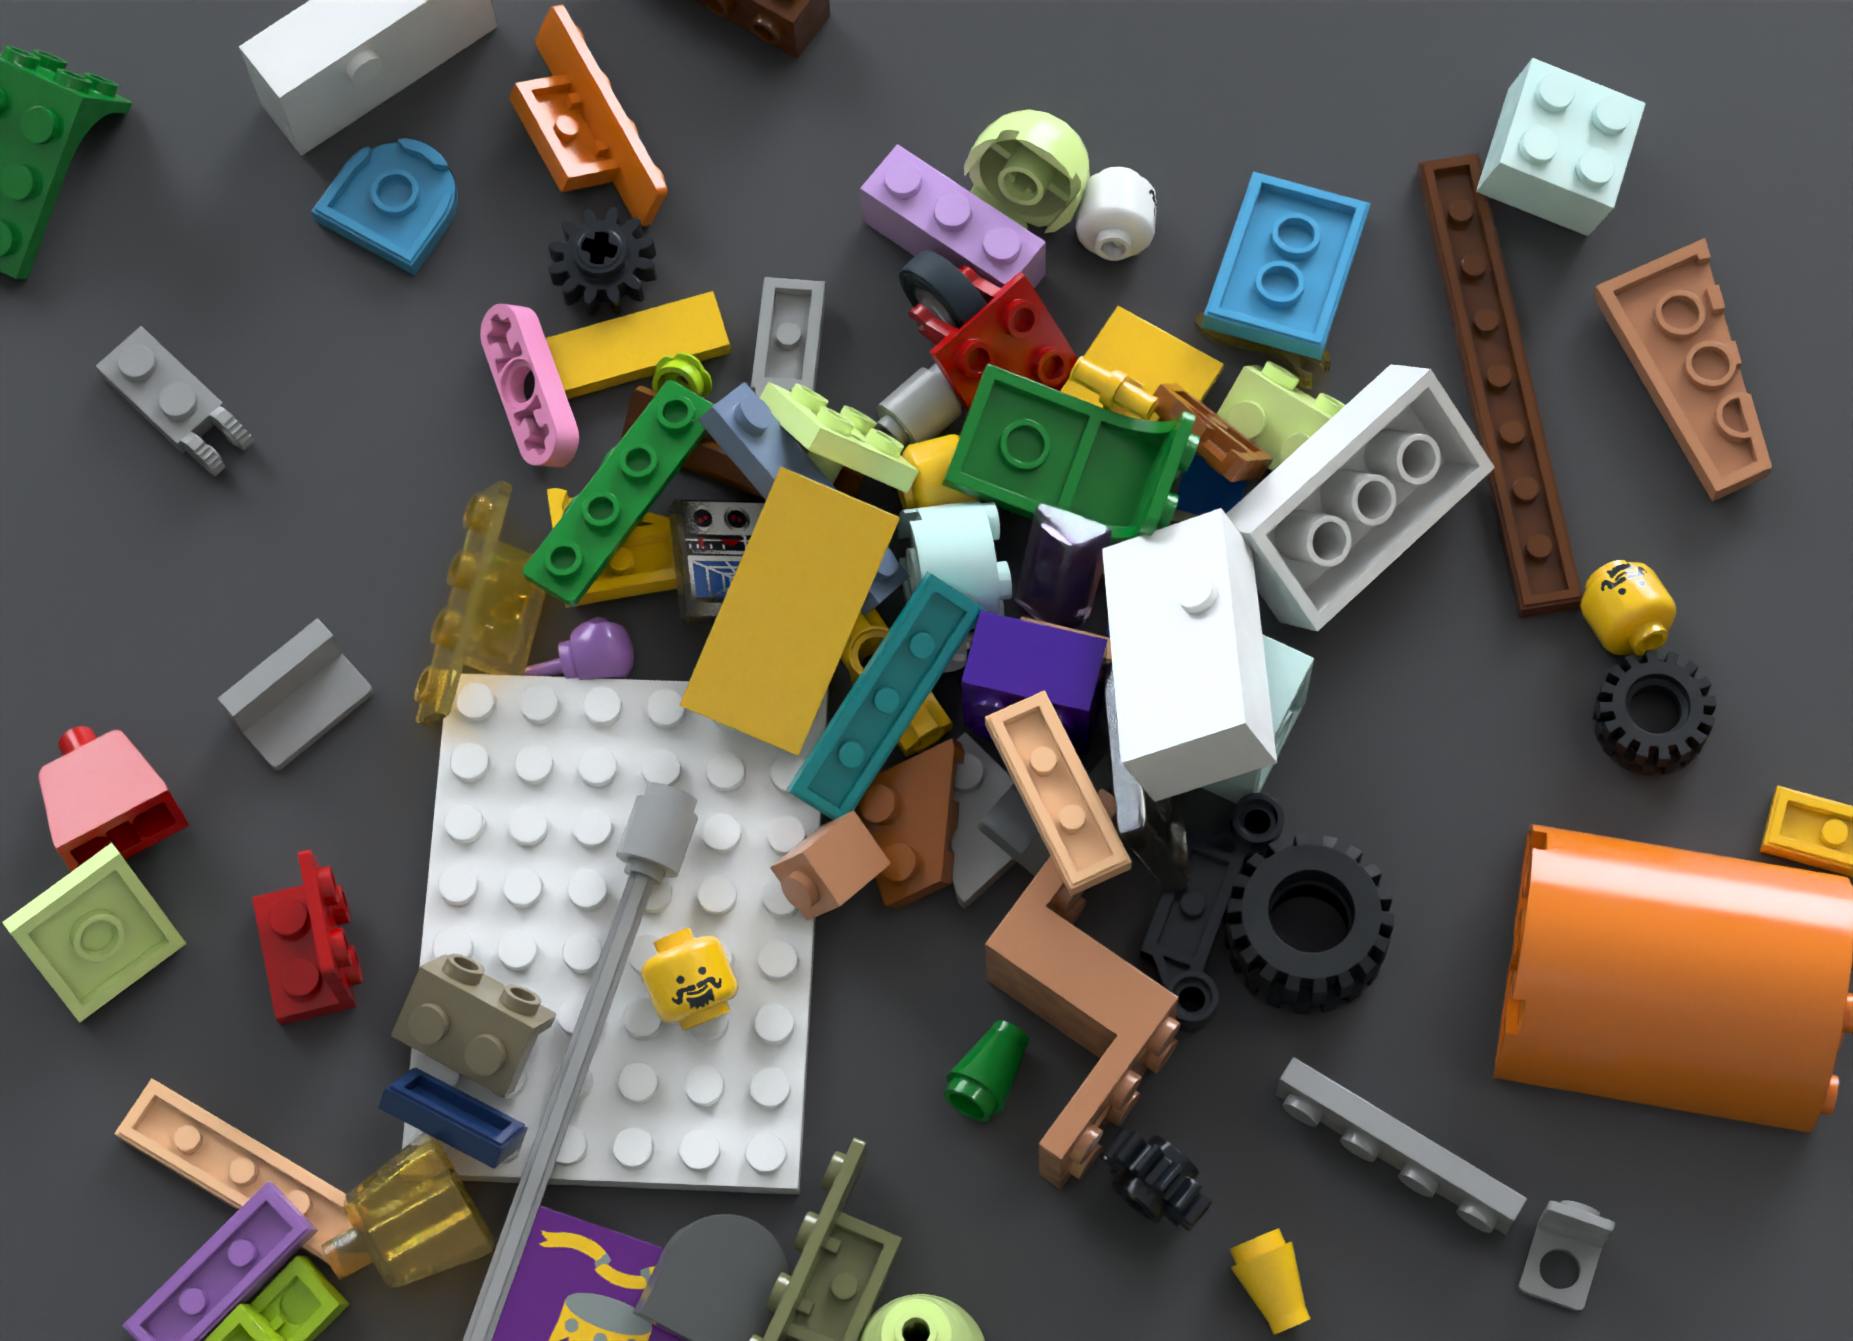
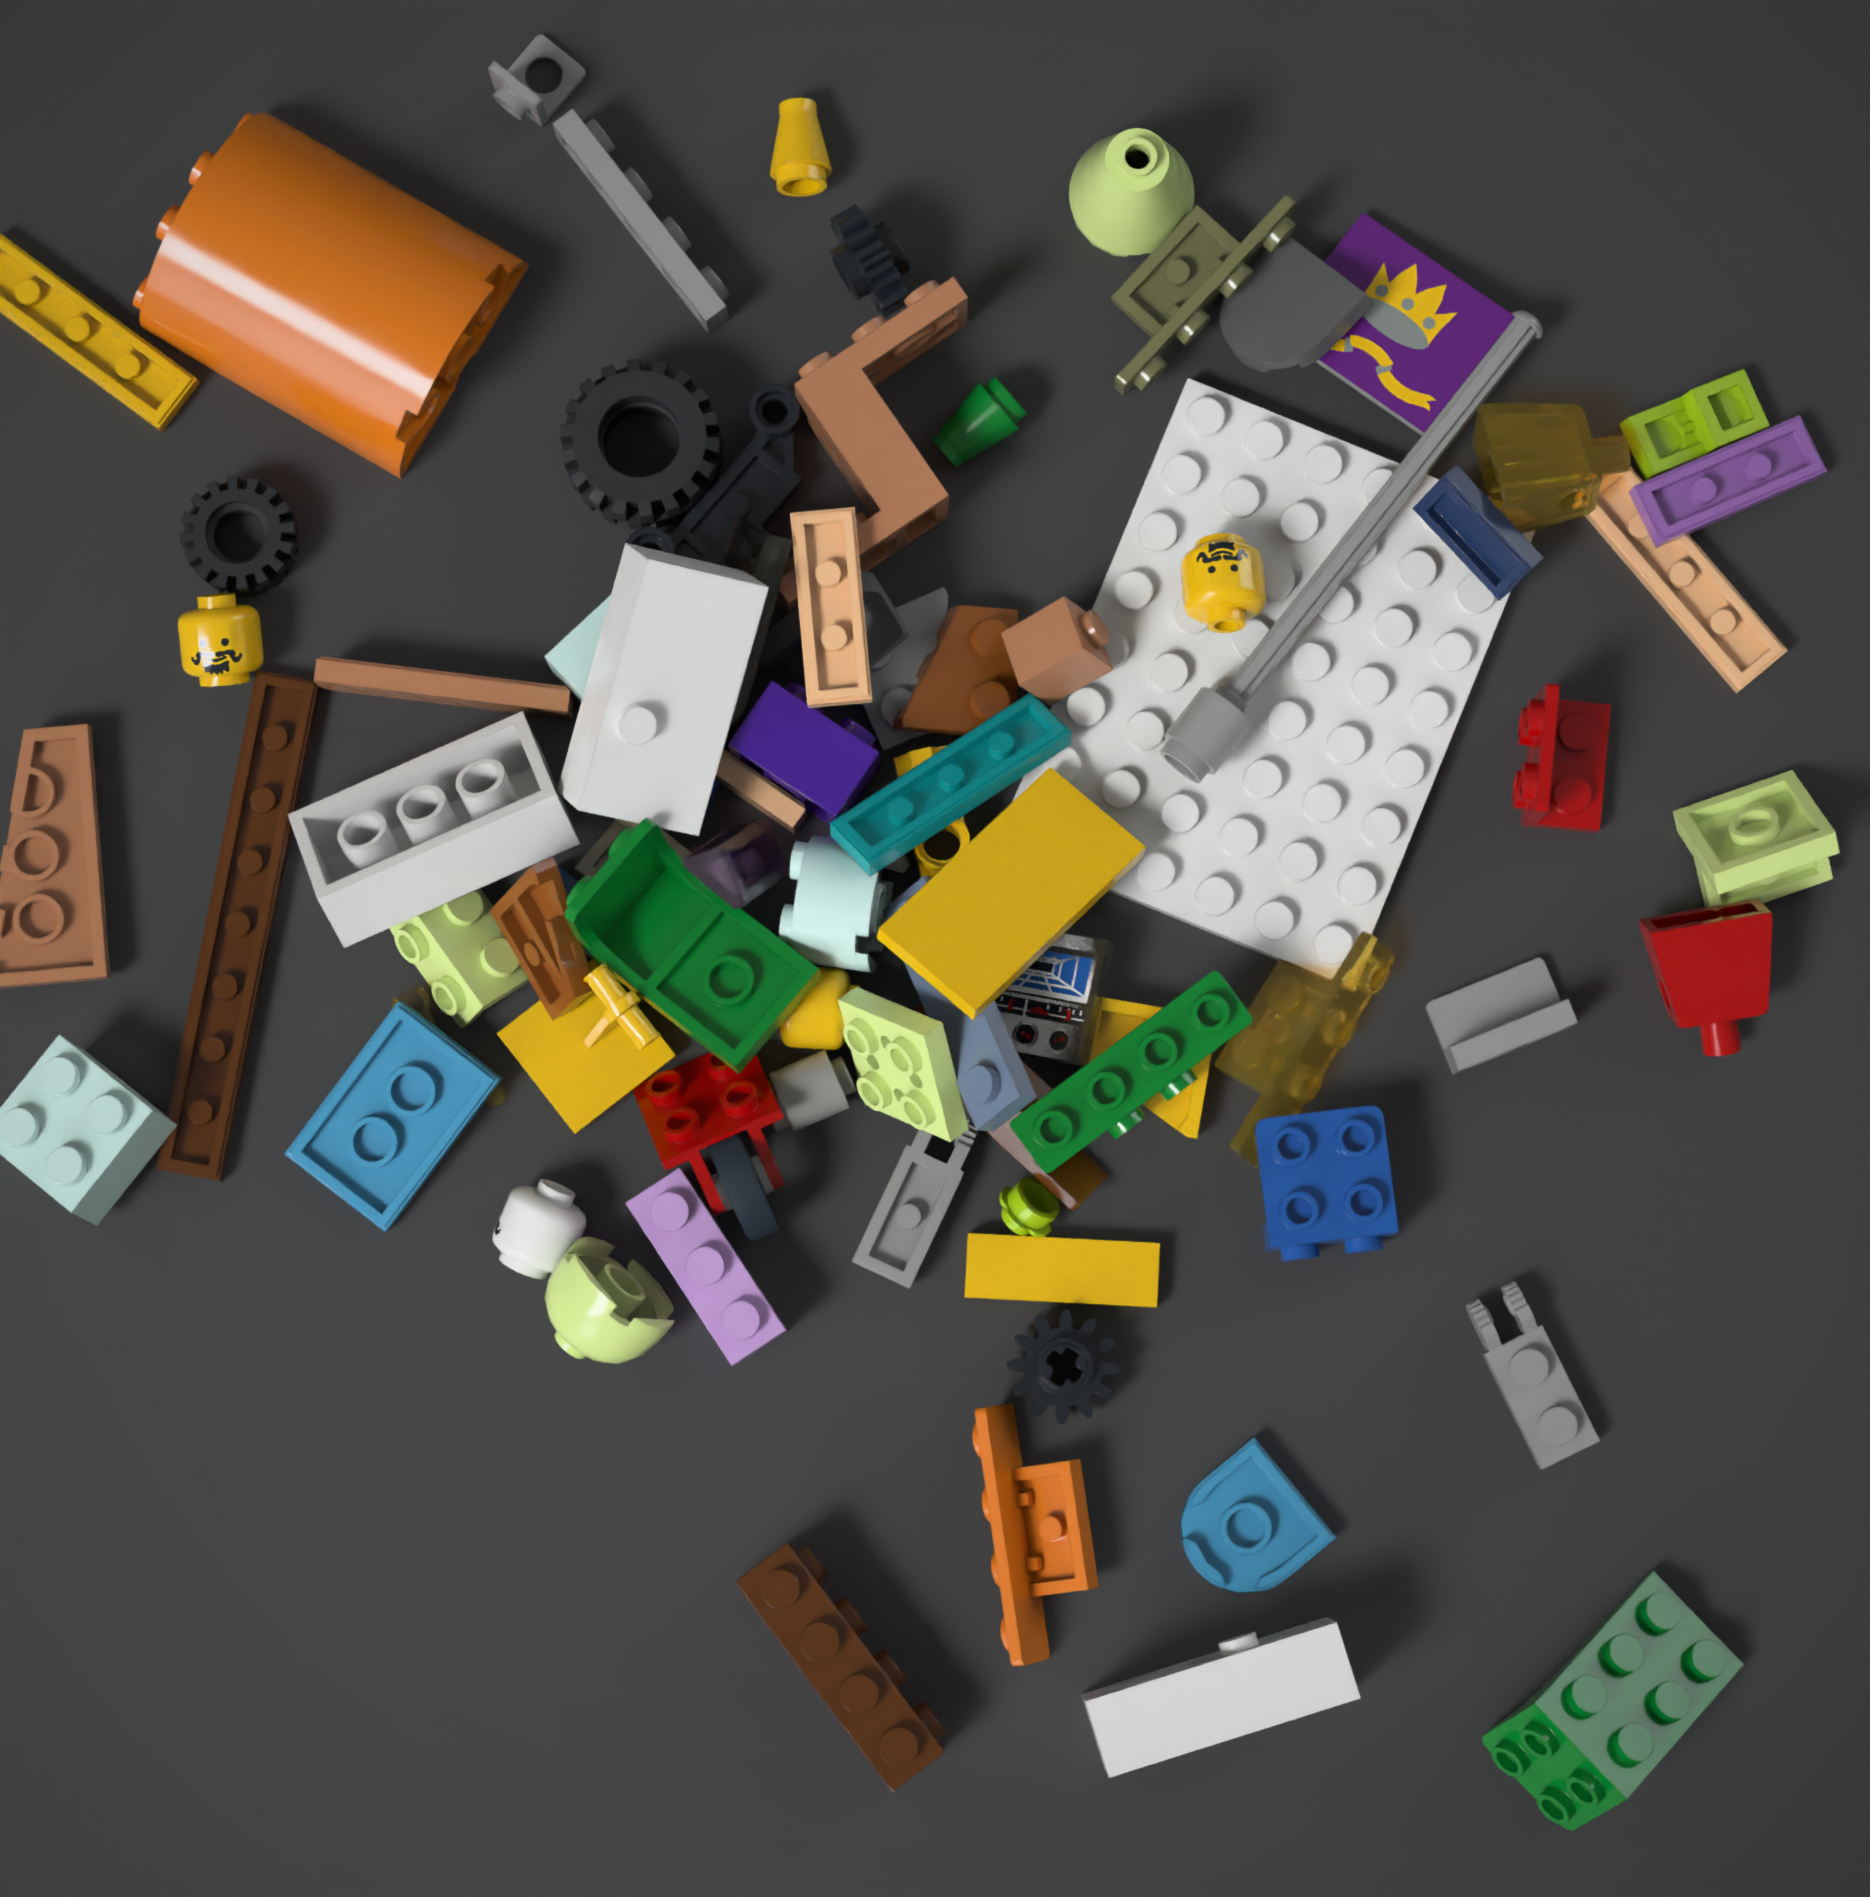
camera: 165 degrees left, 15 degrees up
(413, 482) = (1326, 1182): none -> blue bracket
(472, 1022) = (1430, 619): dark tan bracket -> none
(545, 422) = (1162, 1278): bright pink beam -> none
(594, 652) = (1198, 950): medium lavender piece -> none
(1415, 636) = (444, 688): none -> nougat tile

